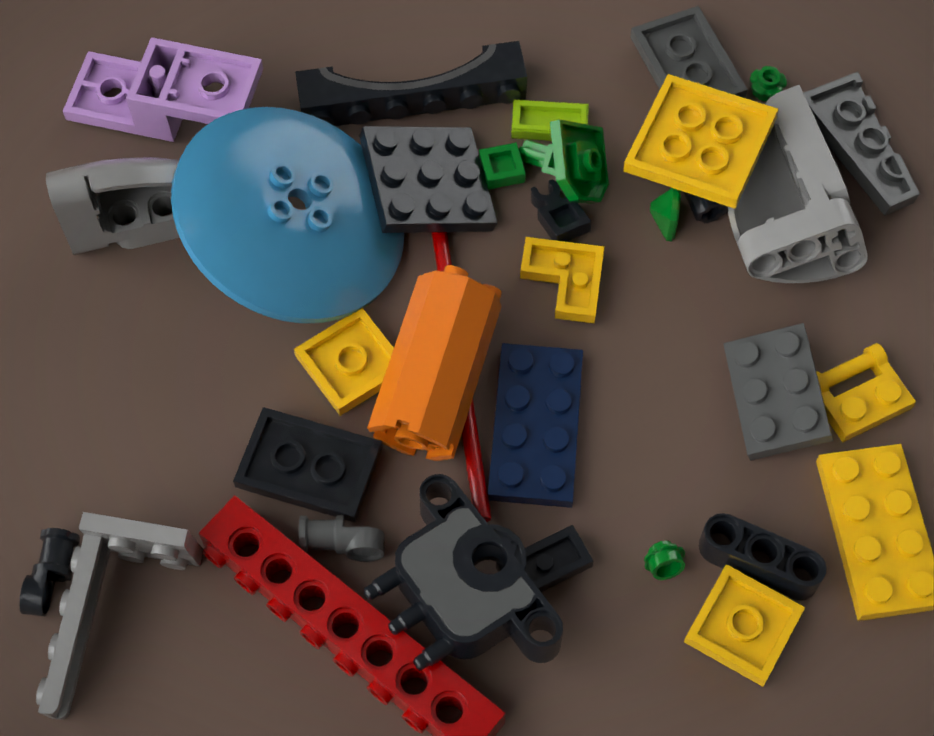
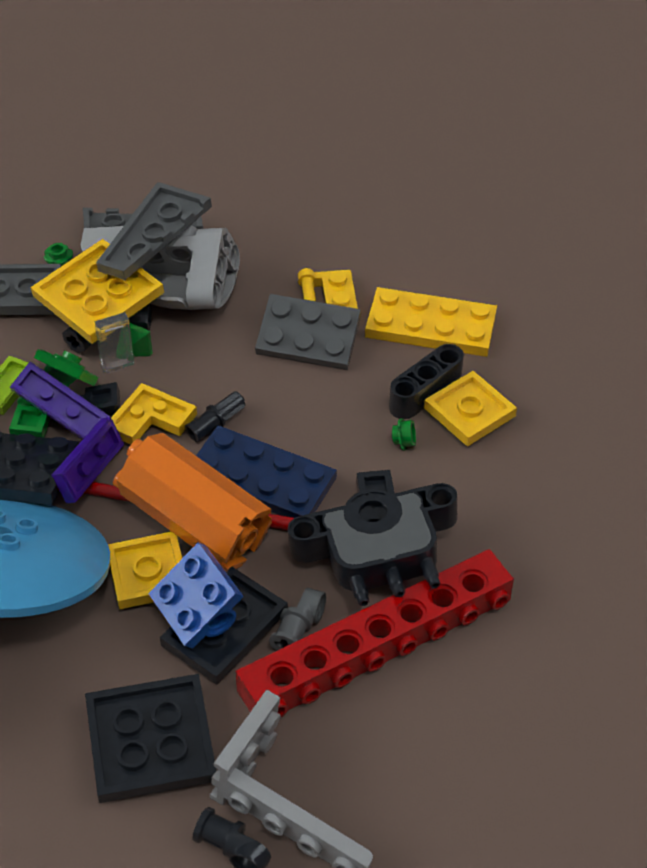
camera: 70 degrees left, 15 degrees down
(146, 447) = (149, 738): none -> black plate
(306, 418) = (197, 597): none -> plate
(463, 241) = (88, 460): none -> dark purple tile
(527, 181) = (57, 400): none -> dark purple tile
(595, 342) = (215, 416): none -> black axle
(639, 193) = (114, 342): none -> clear tile
(818, 150) = (151, 227): none -> dark grey wing

